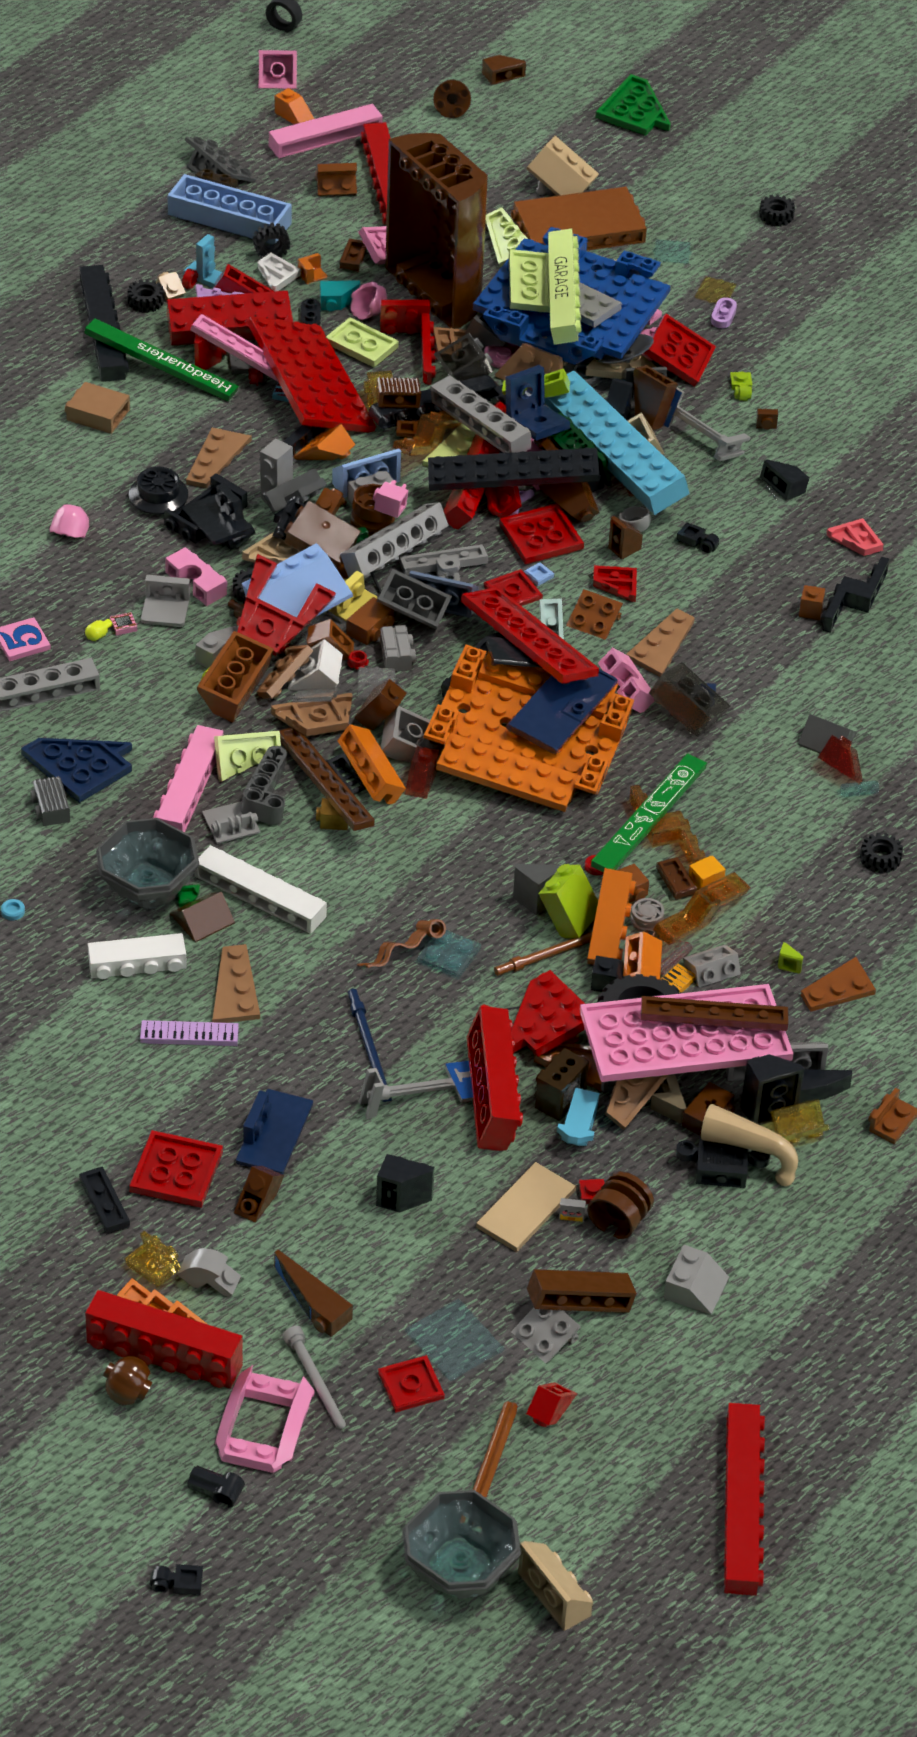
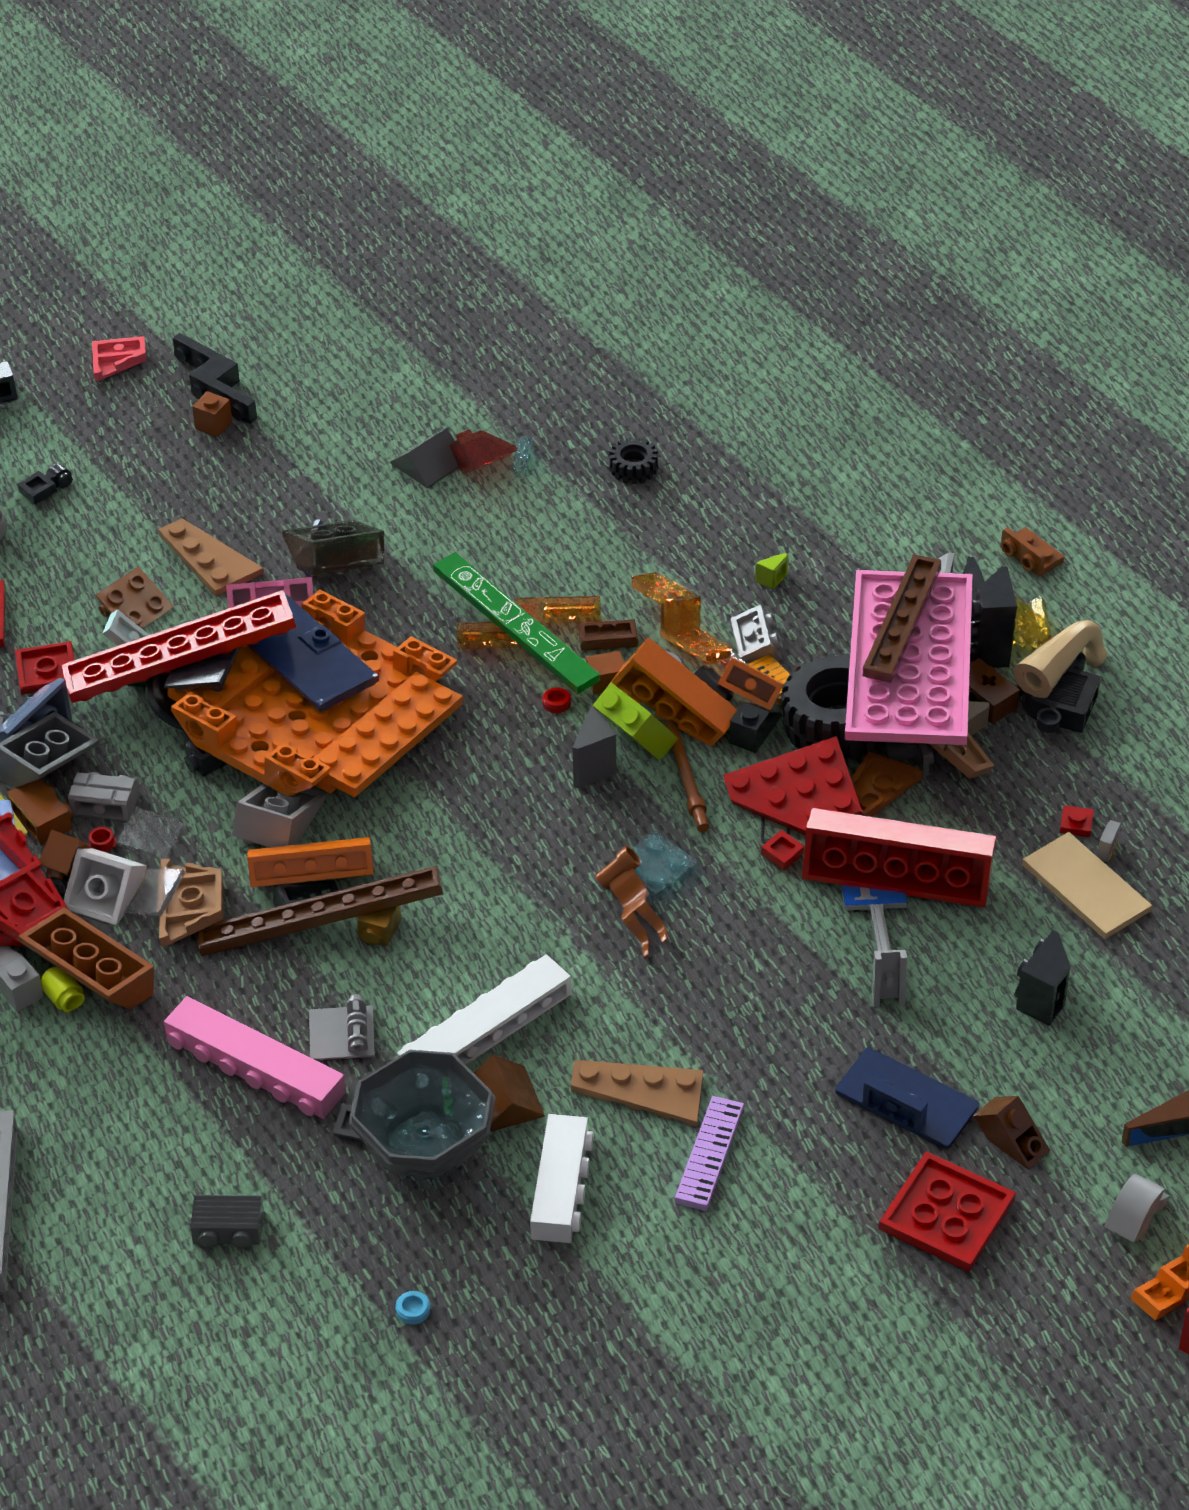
camera: 70 degrees left, 0 degrees up
(81, 764) = (162, 1176): dark blue wing -> none
(104, 1200) = (983, 1299): black plate -> none
(153, 1260) = (1108, 1260): clear yellow bracket -> none
(242, 751) = (224, 985): yellowish green wing -> none
(259, 794) = (300, 981): dark grey beam -> none
(295, 657) = (92, 902): medium nougat wing -> none
(358, 1010) = (724, 972): dark blue bar -> none
(380, 704) = (213, 822): reddish brown slope -> none
(422, 772) = (339, 816): clear red slope -> none
(539, 574) = (29, 636): light blue tile -> none
(558, 1083) = (923, 795): dark brown piece -> none
(580, 1118) = (976, 800): medium azure piece -> none
(616, 580) = (83, 569): red wing -> none
(621, 1202) = (1123, 788): reddish brown wheel -> none
(623, 538) = (21, 542): reddish brown slope -> none
(706, 872) = (617, 602): light orange panel -> none
(839, 986) = (822, 545): dark orange wing -> none

